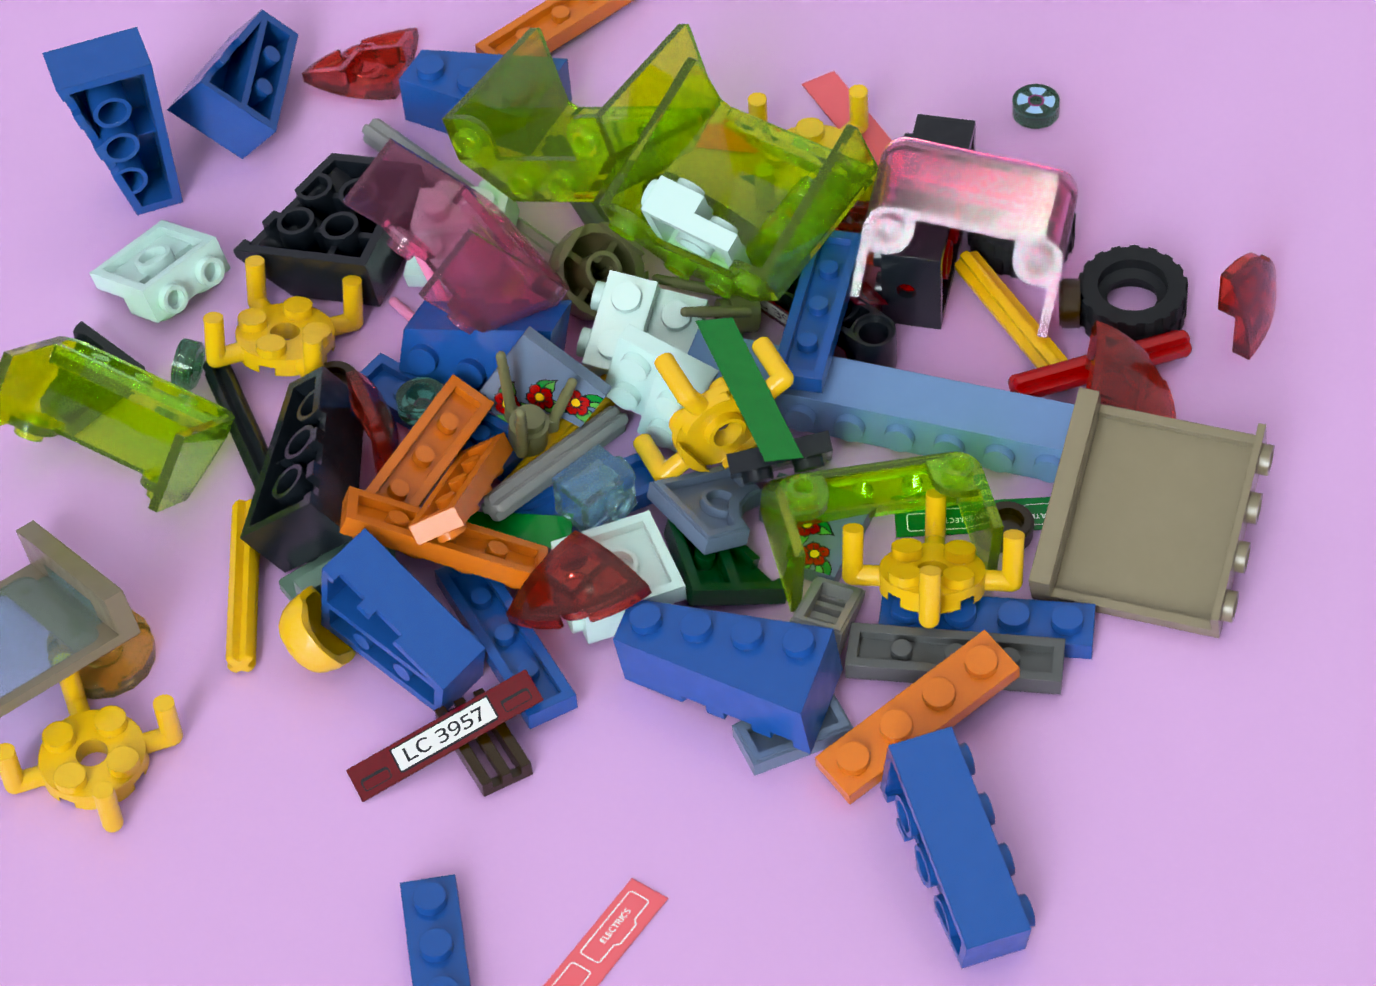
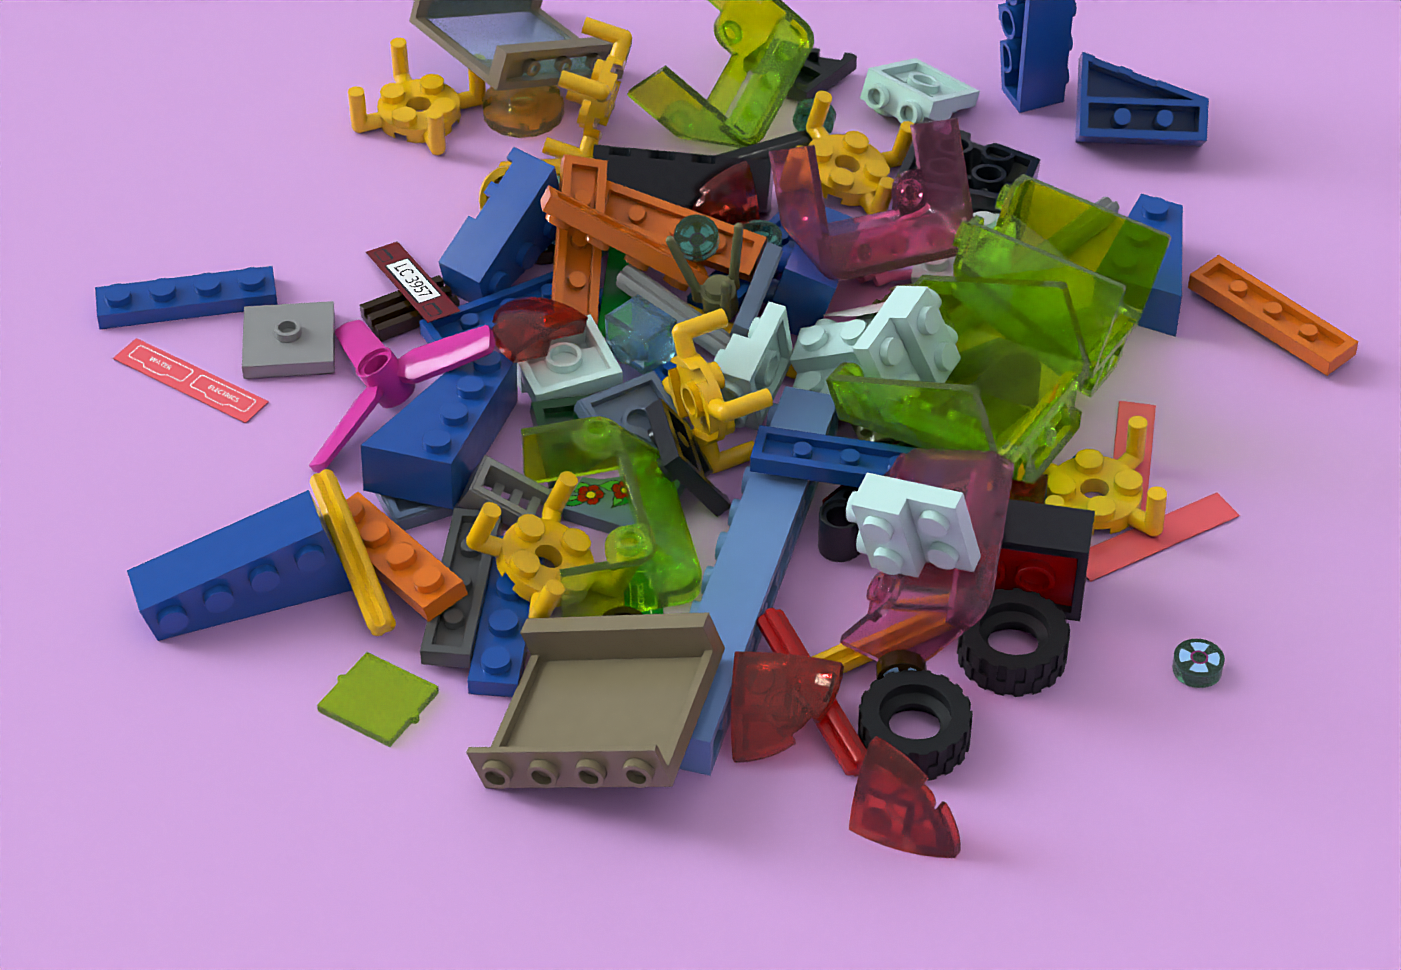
camera: 85 degrees right, 5 degrees down
(156, 558) = (594, 94): none -> yellow plate
(366, 69) = (1200, 199): clear red brick -> none
(449, 434) = (697, 237): none -> clear green tile
(531, 860) = (288, 340): none -> light grey plate
(590, 286) = (858, 311): none -> white sticker
(671, 756) = (392, 379): none -> dark pink piece
(749, 389) = (705, 384): green sticker -> none
(974, 730) = (352, 552): none -> yellow axle
(1027, 191) = (911, 525): none -> light aqua plate
(1107, 733) = (378, 699): none -> clear neon green piece

